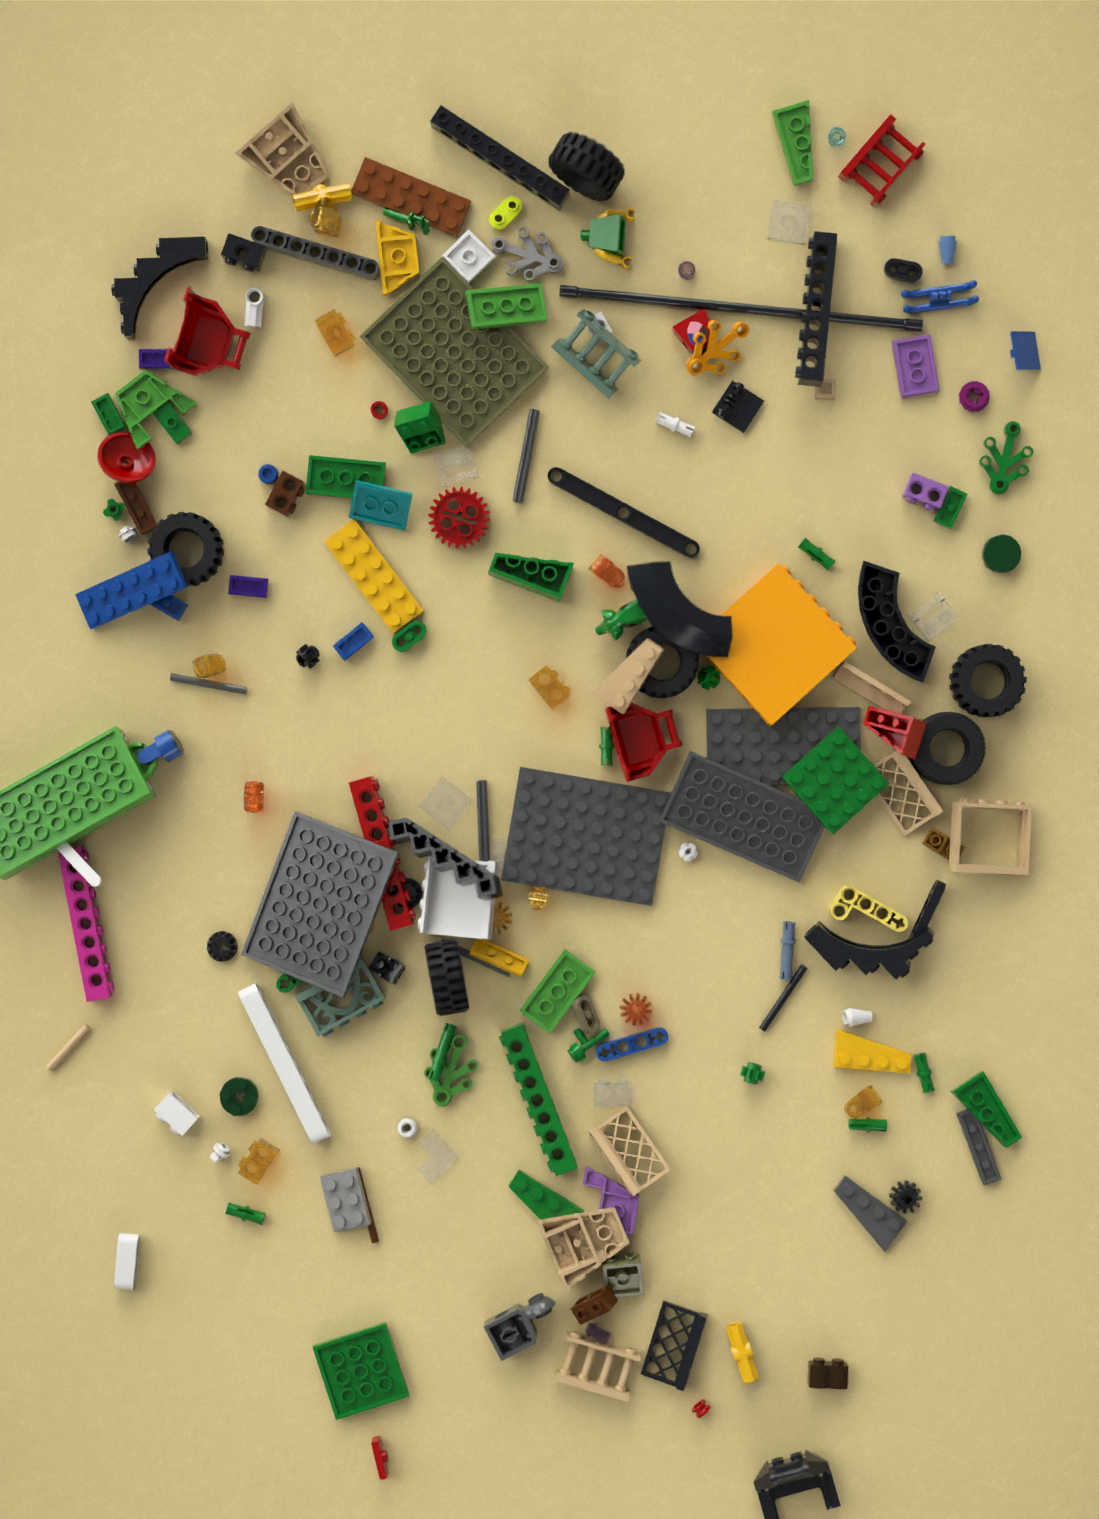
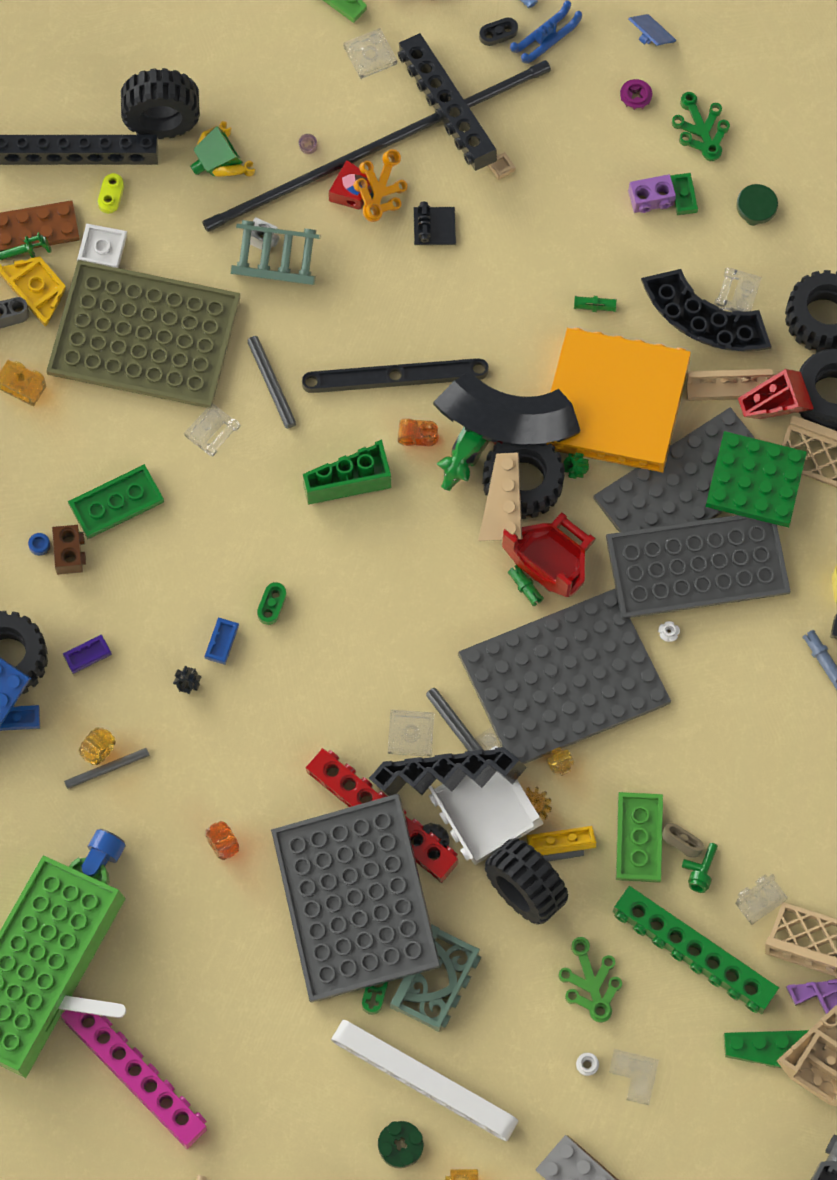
camera: 35 degrees left, 20 degrees down
(230, 942) = (279, 1017): black gear -> none
(373, 576) = (201, 572): yellow plate -> none
(374, 413) = (103, 430): red bush -> none
(380, 505) = (165, 503): teal tile -> none
(387, 967) = (461, 921): black hand -> none
(420, 427) = (157, 413): green slope -> none
(439, 1060) = (573, 973): green pin -> none
(453, 533) = (251, 487): red gear -> none
(506, 306) = (165, 264): bright green plate -> none
(529, 255) = (156, 214): light grey plant -> none
(545, 690) = (433, 571): clear yellow brick -> none
(632, 1015) = (731, 810): clear orange gear -> none
(632, 1046) = (742, 839): blue beam -> none
(675, 424) = (389, 273): white pin -> none
(915, 366) = (566, 101): medium lavender tile -> none

